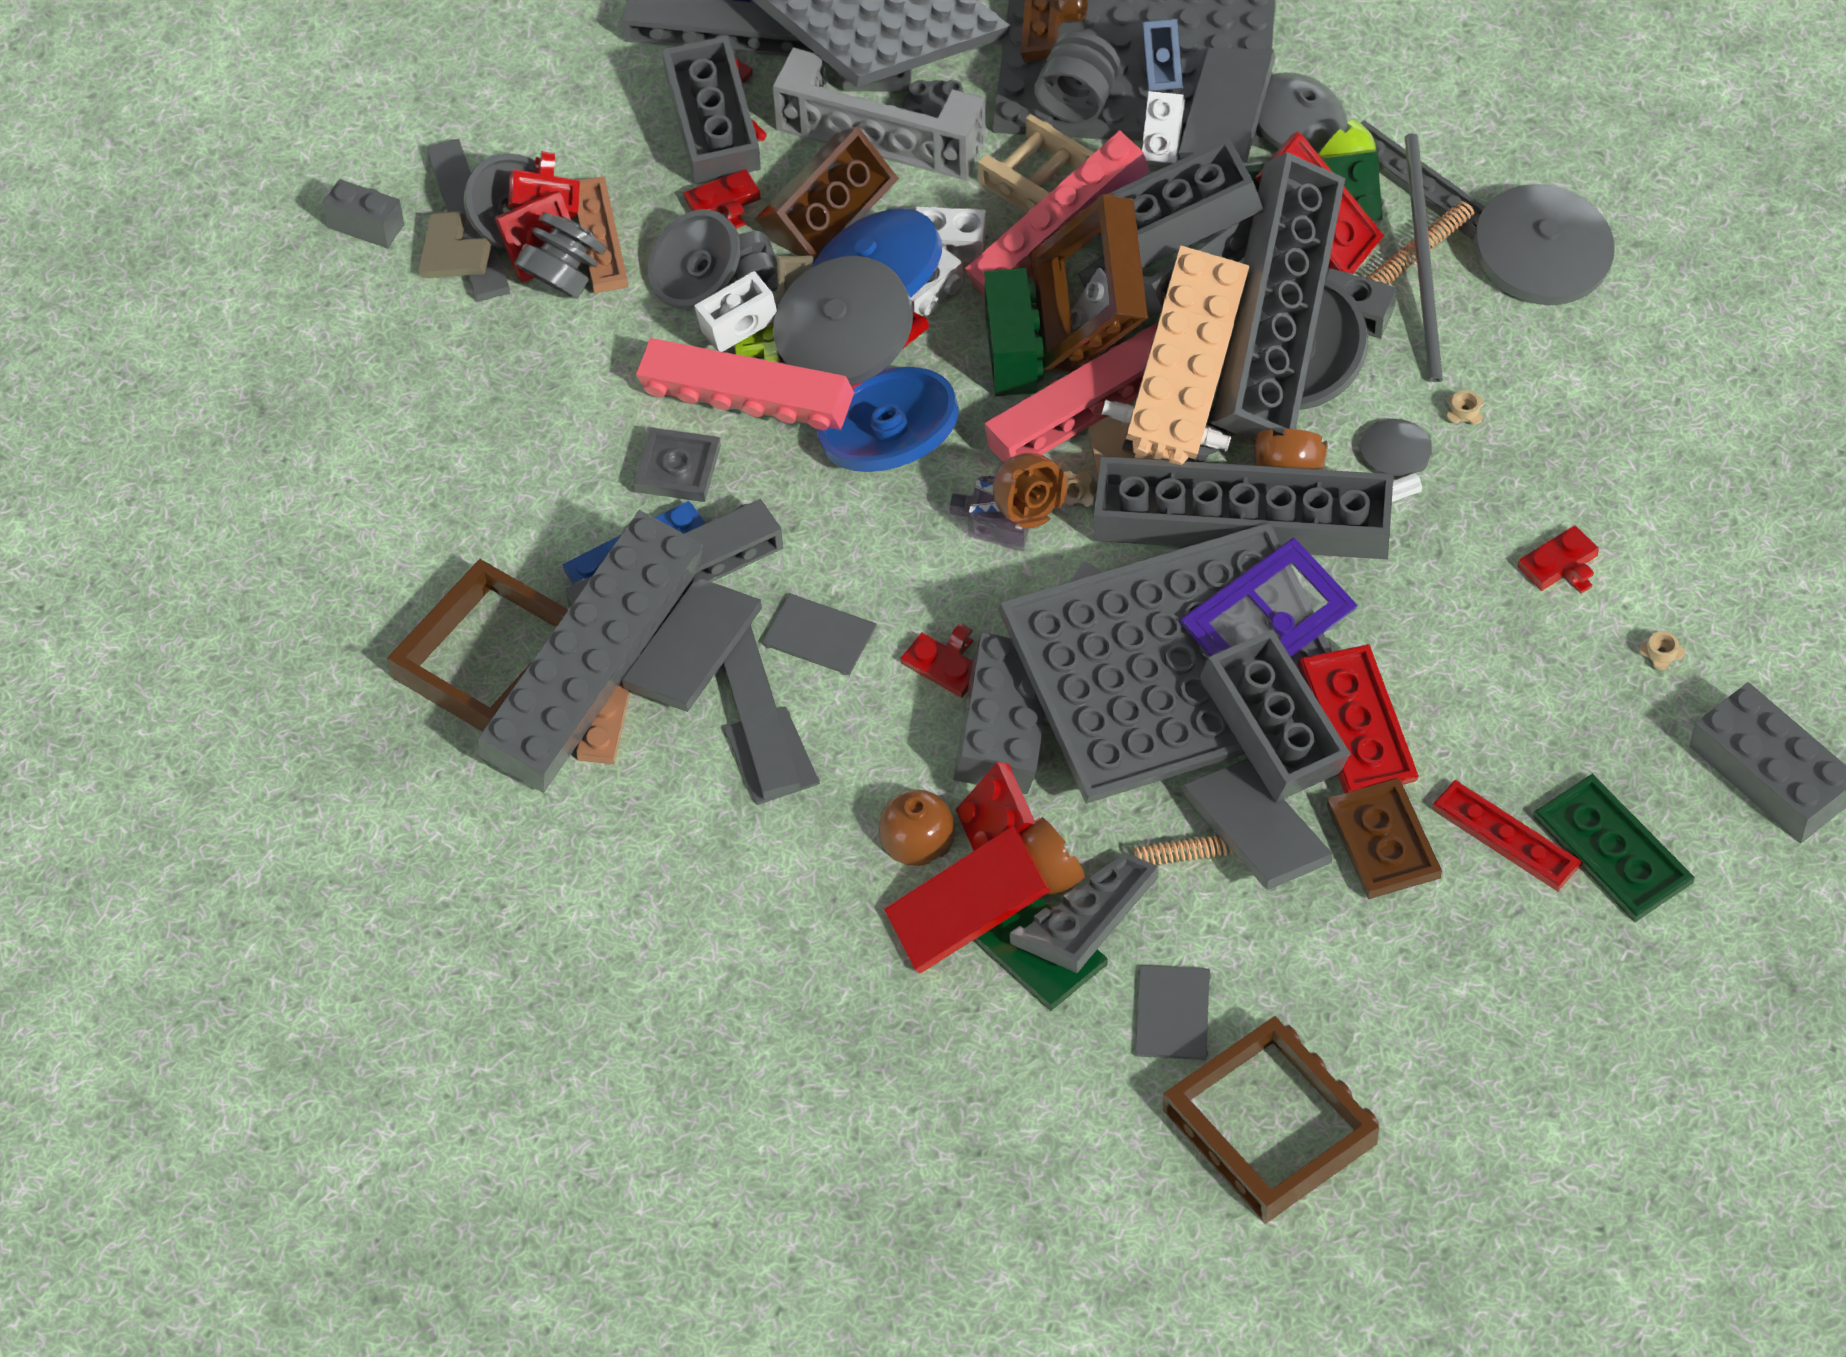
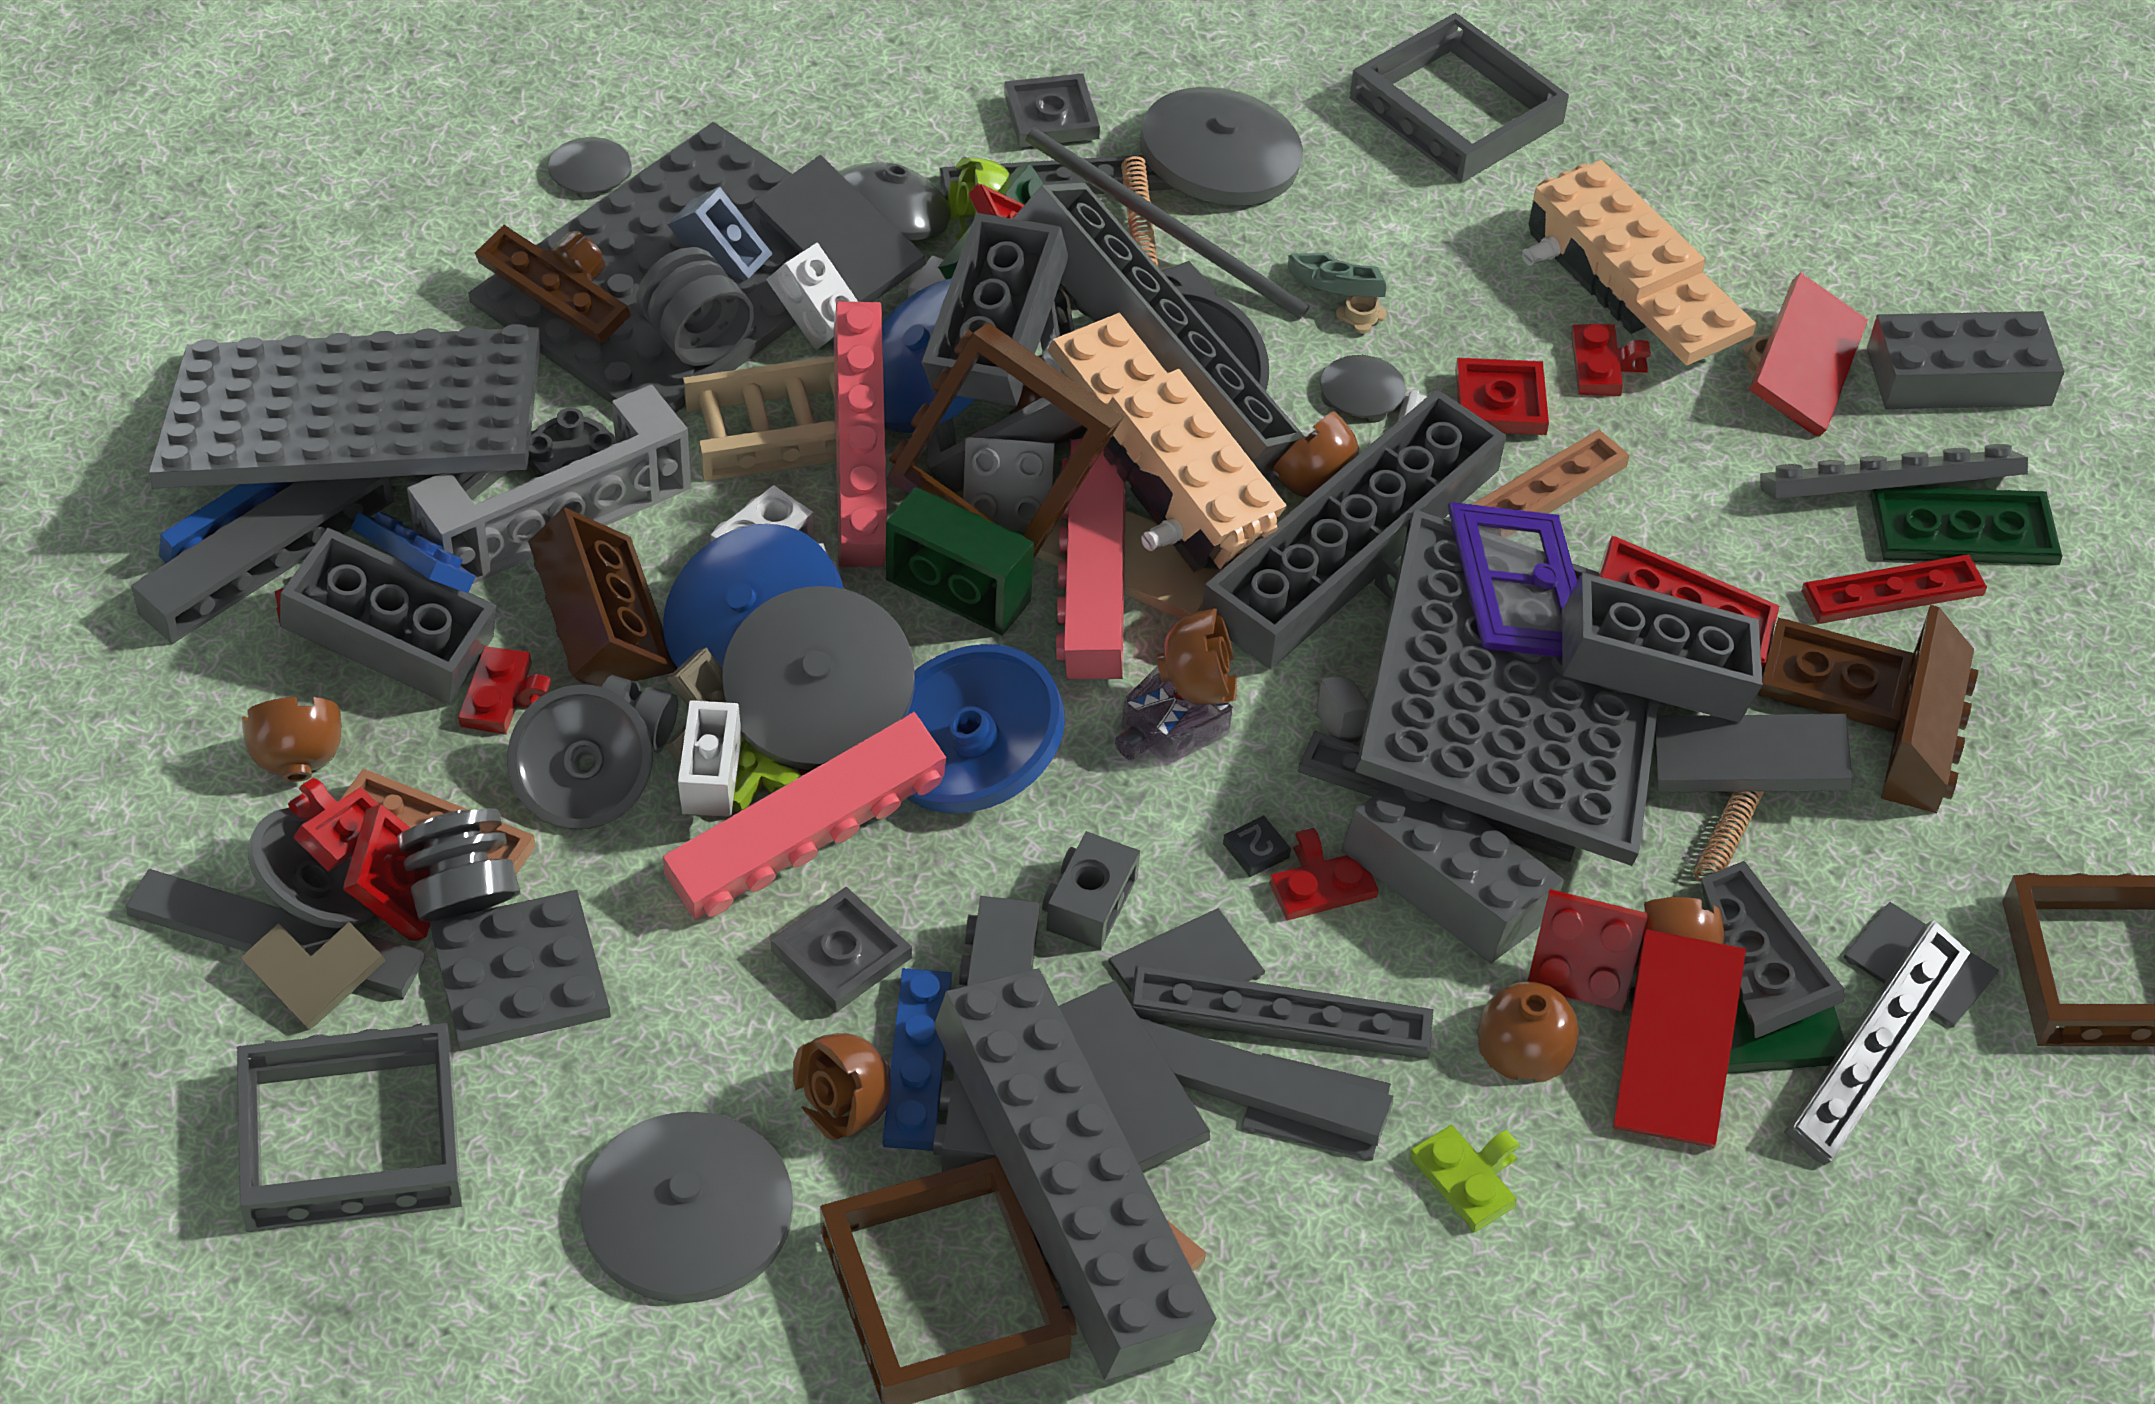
camera: 60 degrees left, 5 degrees down
(291, 324) = (350, 1195): none -> dark grey window
(363, 213) = (166, 1022): dark grey brick -> none
(446, 508) = (686, 1207): none -> dark grey dish
(537, 336) = (519, 970): none -> dark grey plate
(579, 521) = (842, 1076): none -> dark orange cylinder
(593, 132) = (292, 737): none -> dark orange cylinder
(756, 92) = (414, 550): none -> blue plate
(783, 853) = (1469, 1177): none -> lime plate
(822, 698) = (1281, 1012): none -> dark grey tile
(825, 552) = (1091, 890): none -> dark grey brick
(941, 614) = (1256, 846): none -> black tile
(1075, 1013) = (1876, 1043): none -> tile
(1384, 900) = (1931, 716): none -> reddish brown slope
(1407, 594) = (1561, 476): none -> nougat plate
(1461, 524) = (1504, 393): none -> red plate
(1478, 374) = (1337, 276): none -> sand green tile
(1481, 140) = (1054, 106): none -> flat silver plate
(1624, 784) = (1878, 473): none -> dark grey plate
(1659, 521) = (1632, 262): none -> light nougat piece
(1681, 668) = (1808, 355): none -> tile
(1748, 291) = (1374, 92): none -> dark grey window

